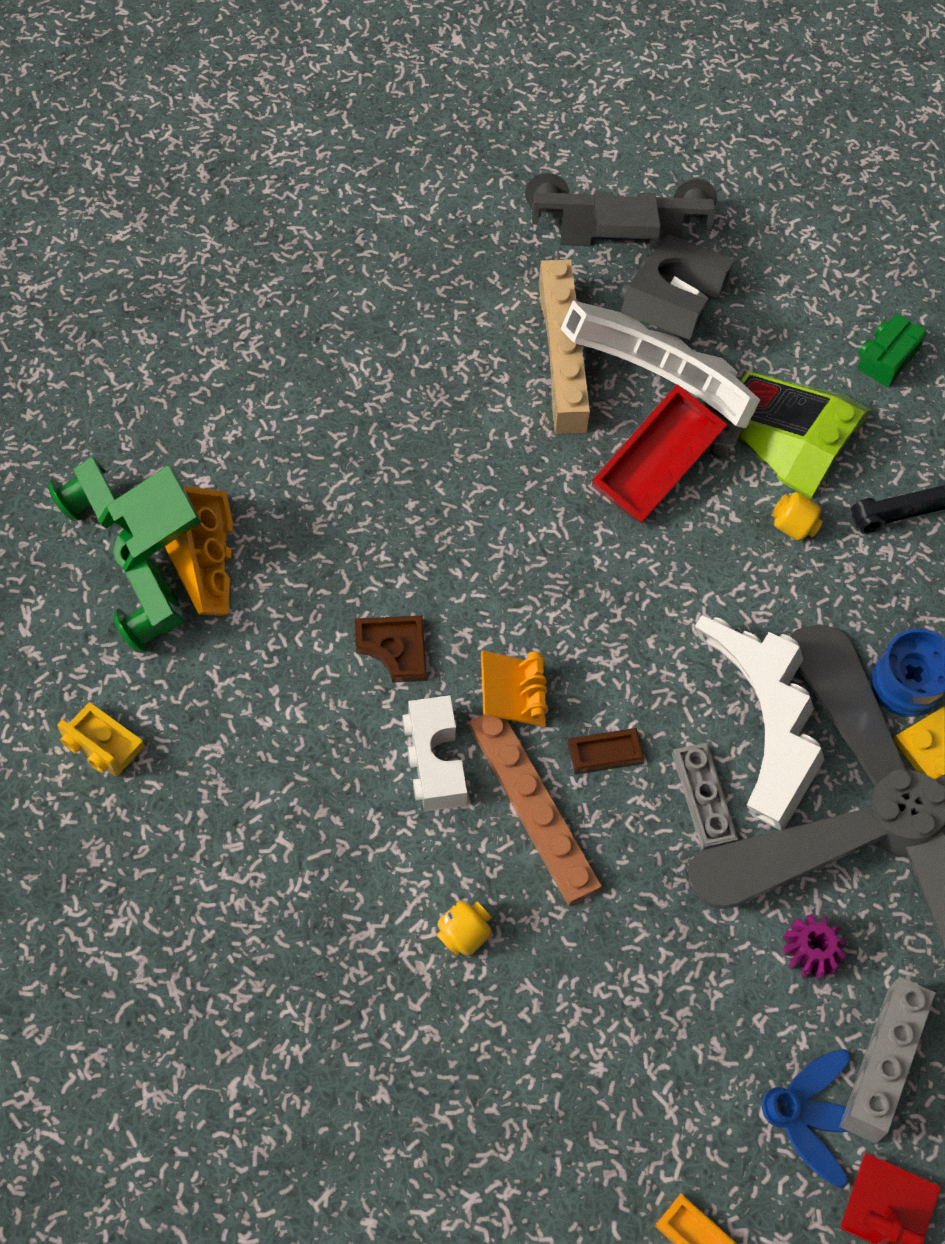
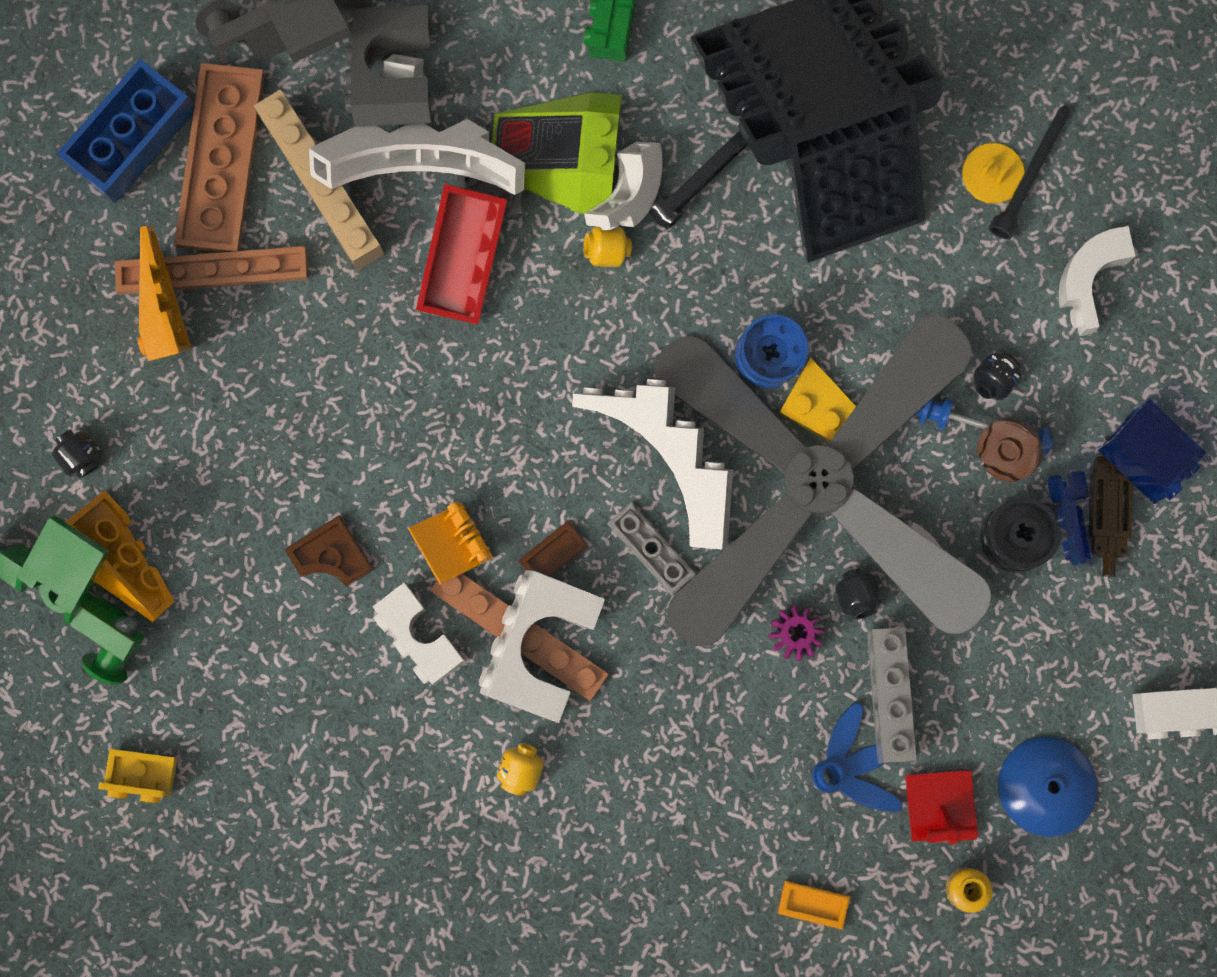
camera: 25 degrees left, 20 degrees up
(221, 450) = (76, 453): none -> black head
(363, 375) = (159, 313): none -> light orange wedge
(421, 234) = (127, 130): none -> blue brick
(428, 370) = (221, 269): none -> nougat plate
(484, 294) = (219, 158): none -> nougat plate
(502, 832) = (507, 676): none -> white arch
(849, 481) = (635, 190): none -> white arch
(898, 943) = (858, 594): none -> black head

